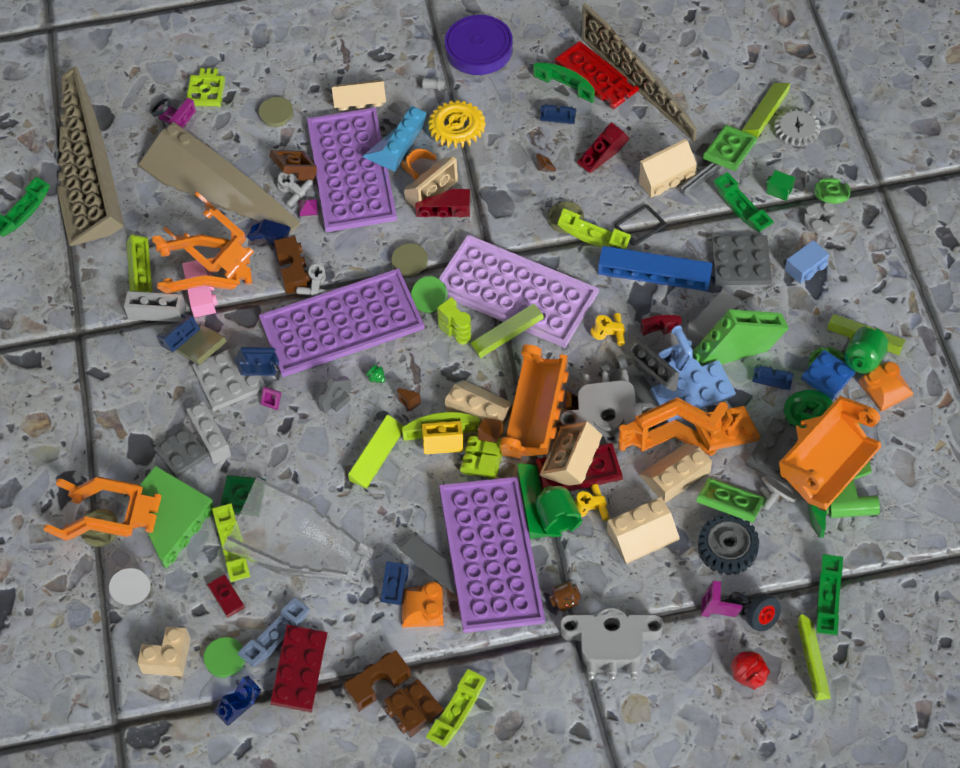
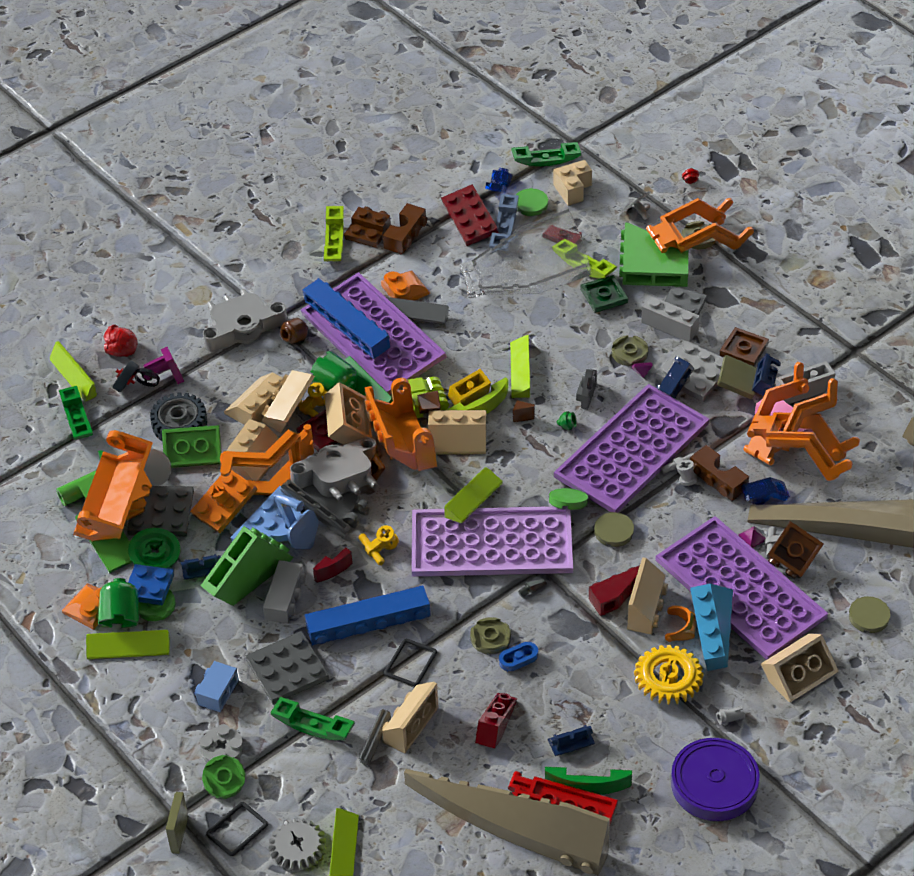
camera: 150 degrees right, 10 degrees down
(46, 602) = (690, 176): none -> red plate
(139, 264) = (860, 422): lime slope -> none
(161, 714) = (550, 157): none -> green slope
(169, 375) = (744, 346): none -> reddish brown plate
(266, 426) = (629, 350): none -> olive tile
(393, 583) = (437, 288): dark blue plate -> none
(454, 321) = (524, 478): lime legs -> none
(508, 240) = (531, 587): none -> pearl dark grey bar
(511, 570) = (346, 318): none -> blue brick
(544, 163) = (546, 677): reddish brown slope -> none
(556, 187) = (518, 656): none -> blue plate
(591, 233) = (452, 626): lime slope -> none
(618, 490) = (286, 399): none -> slope
(730, 147) = (359, 779): bright green tile -> none
(780, 185) = (283, 758): green brick -> none
(839, 169) = (216, 825): none -> black piece
(884, 161) = (177, 822): none -> olive tile

